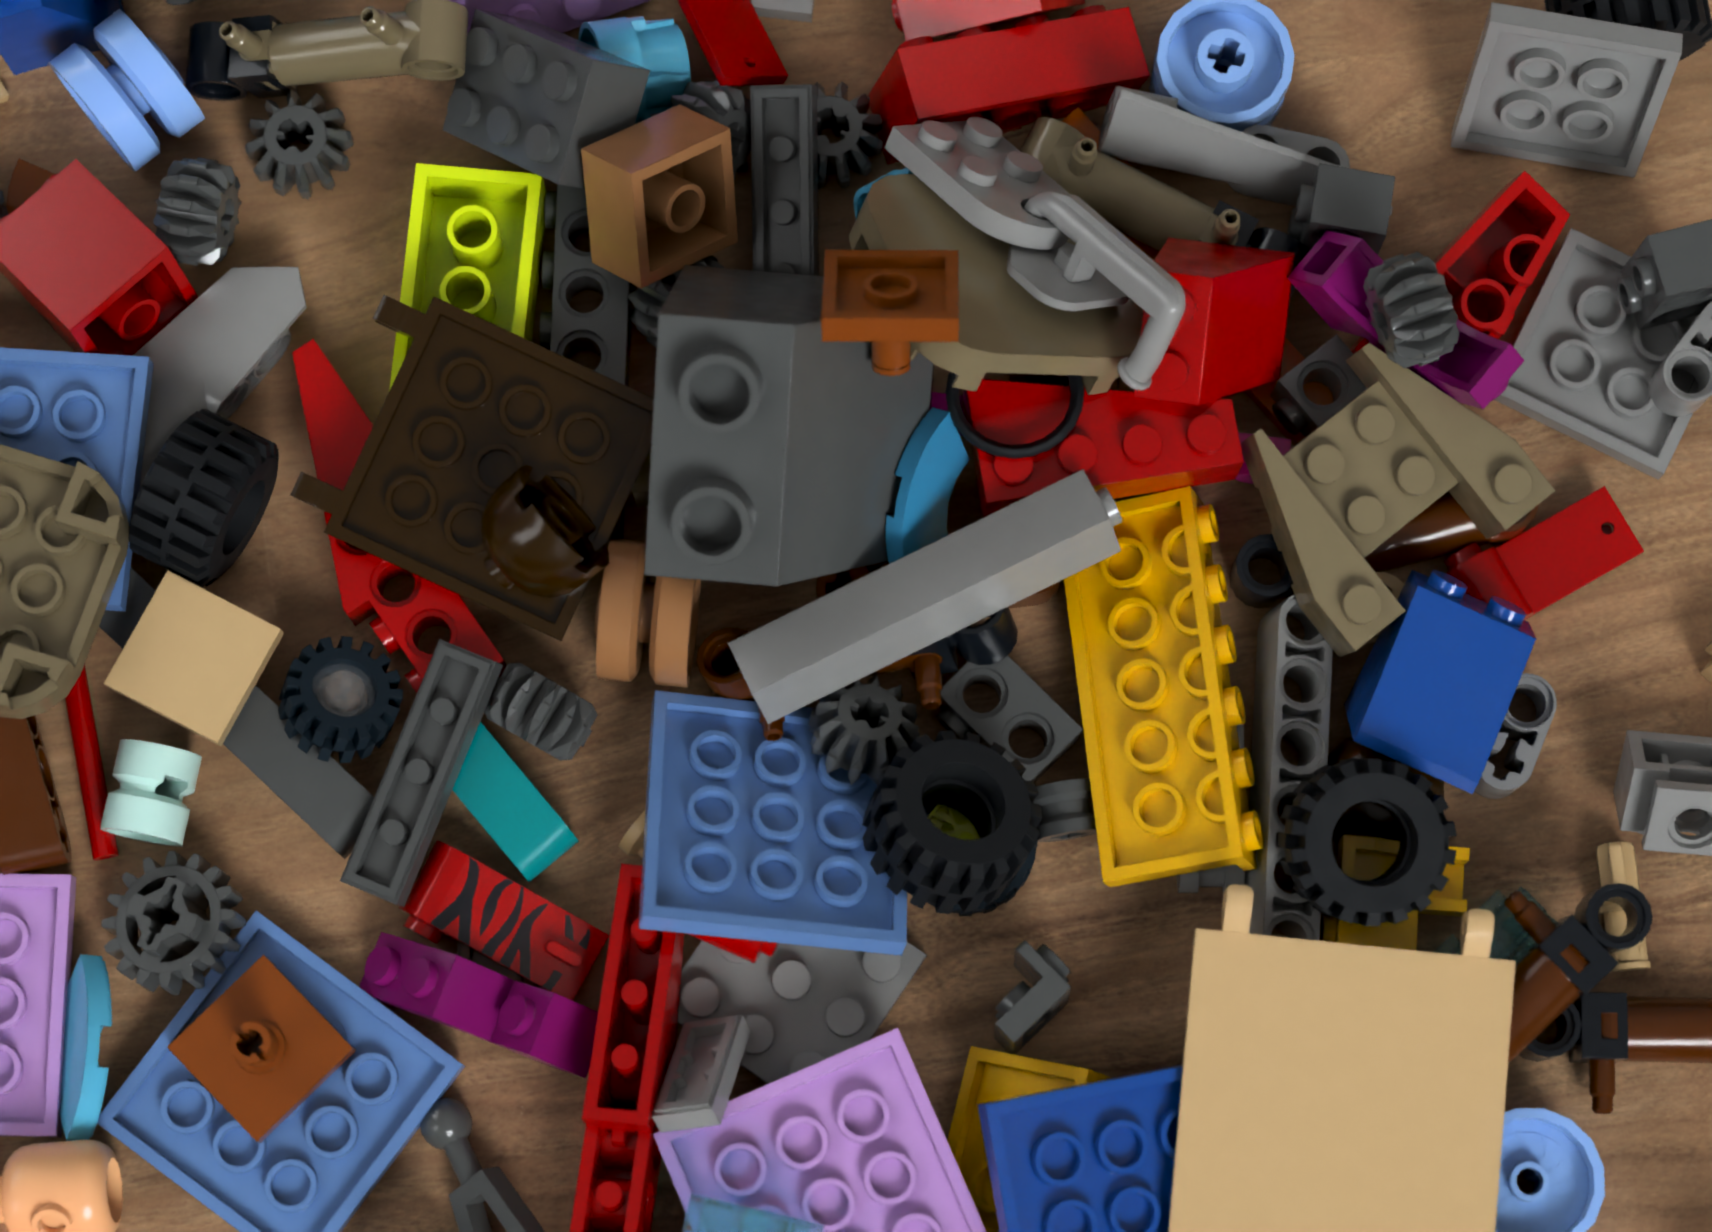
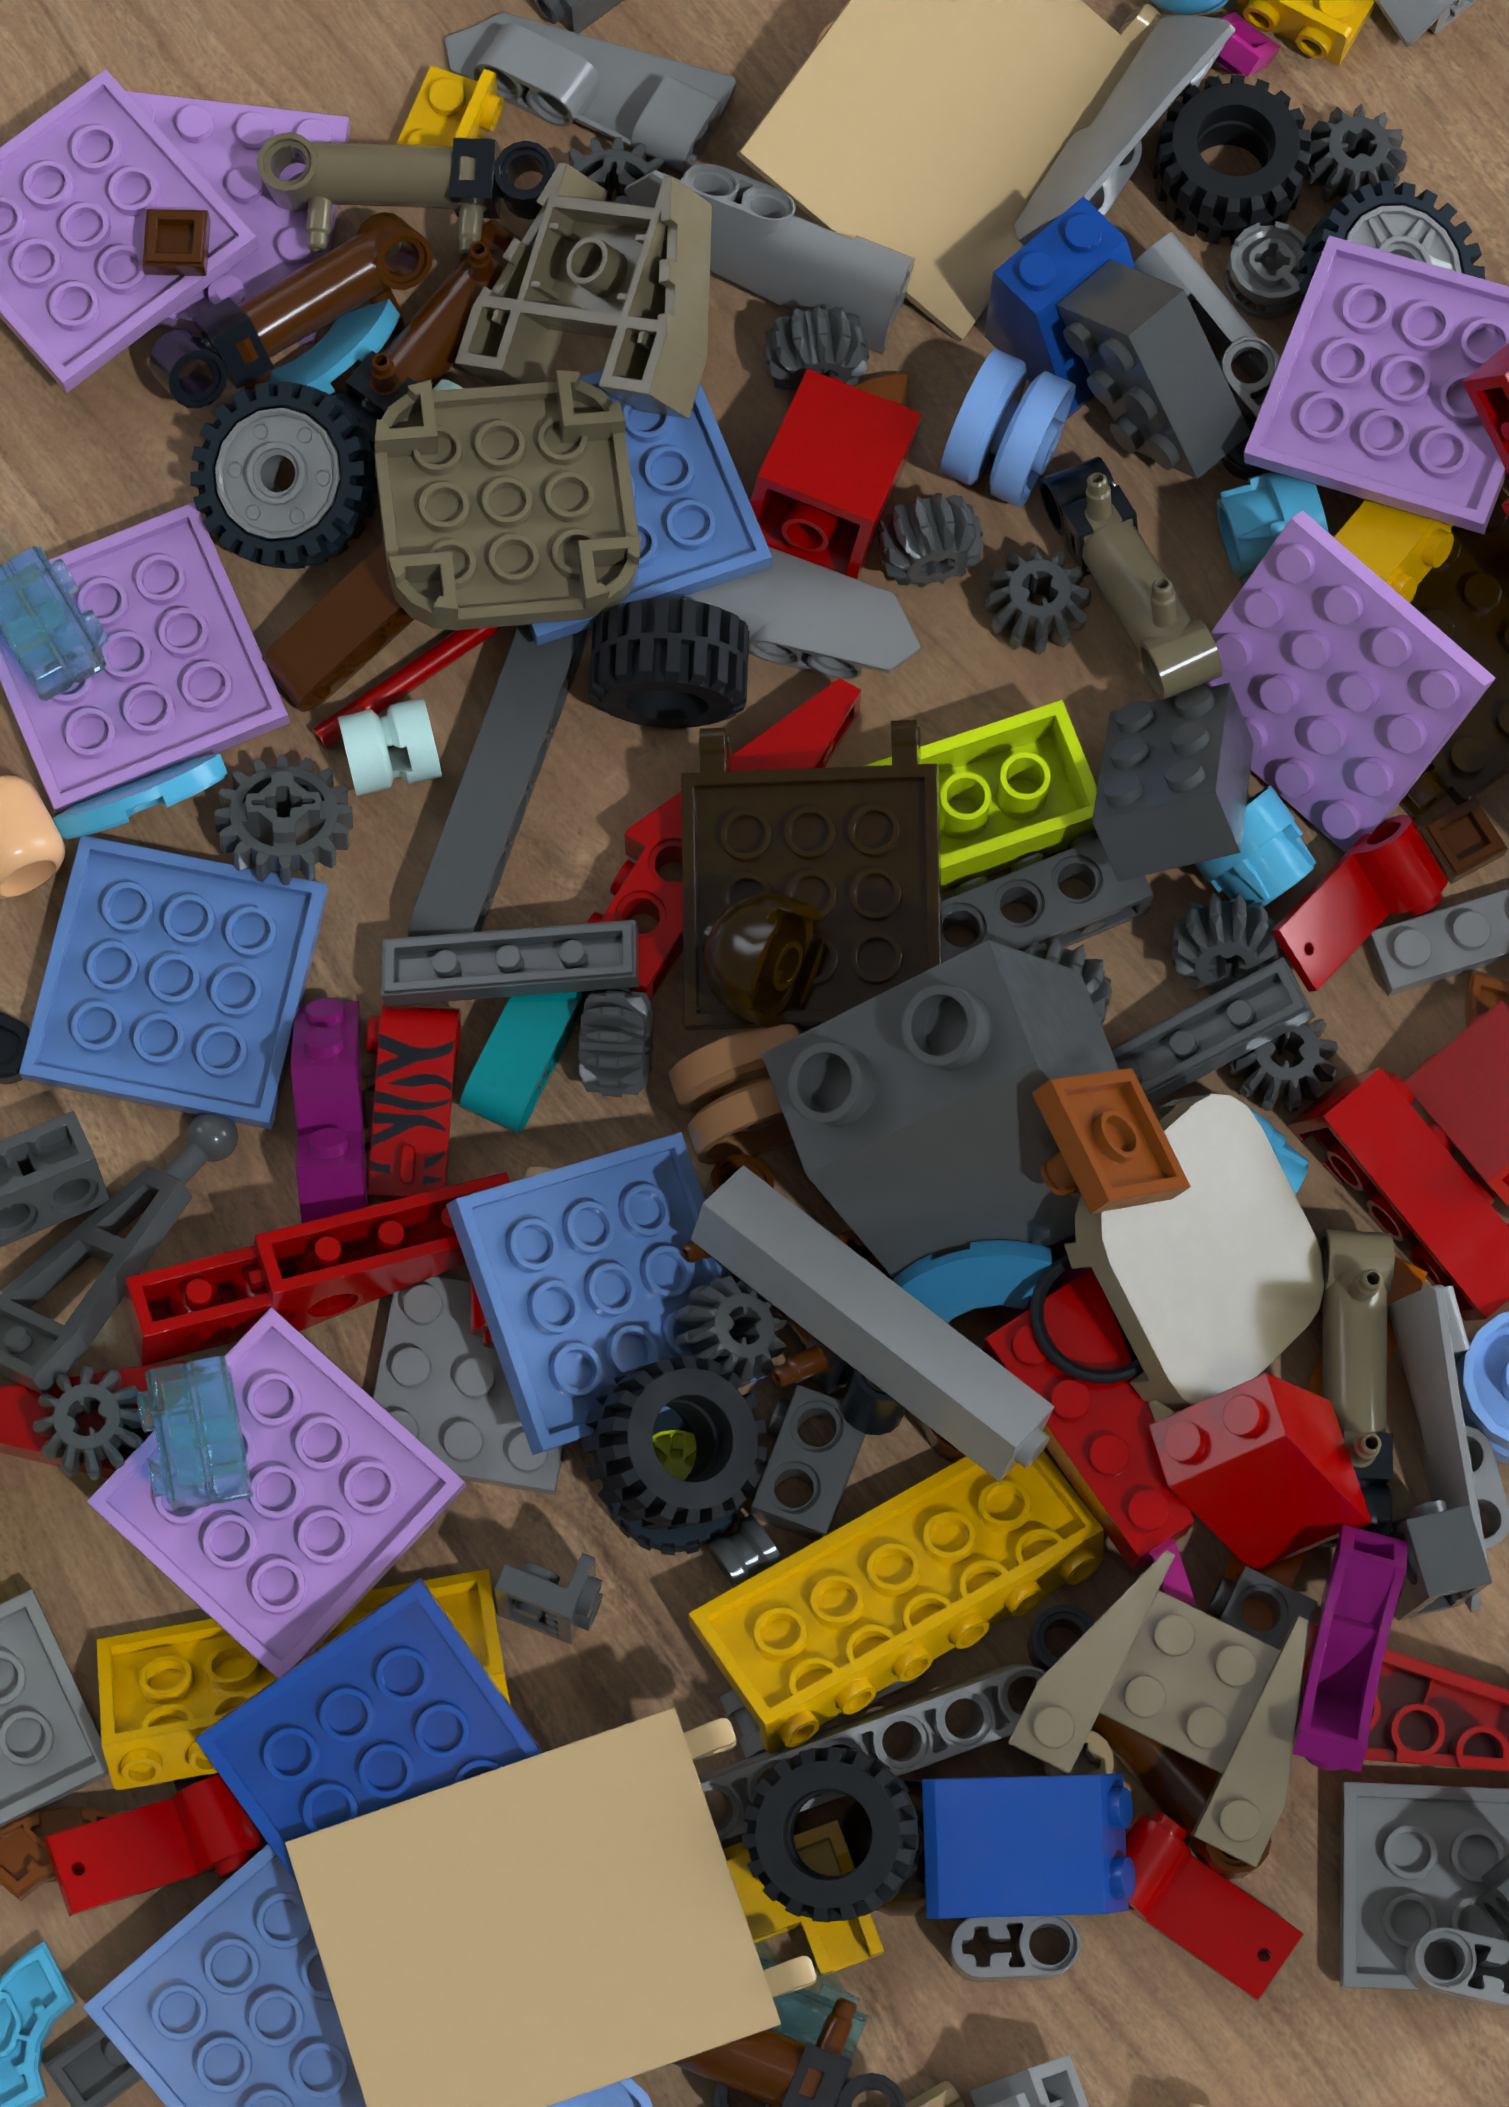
camera: 65 degrees right, 5 degrees down
(194, 658) = (520, 721): tan tile -> none
(261, 1048) = (204, 943): dark orange tile -> none
(340, 699) = (544, 864): black wheel -> none
(660, 195) = (1131, 918): medium nougat brick -> none
(701, 1073) = (347, 1328): light grey plate -> none
(1022, 205) = (1284, 1242): light grey plate -> none
(1411, 309) = (1352, 1639): dark grey gear -> none

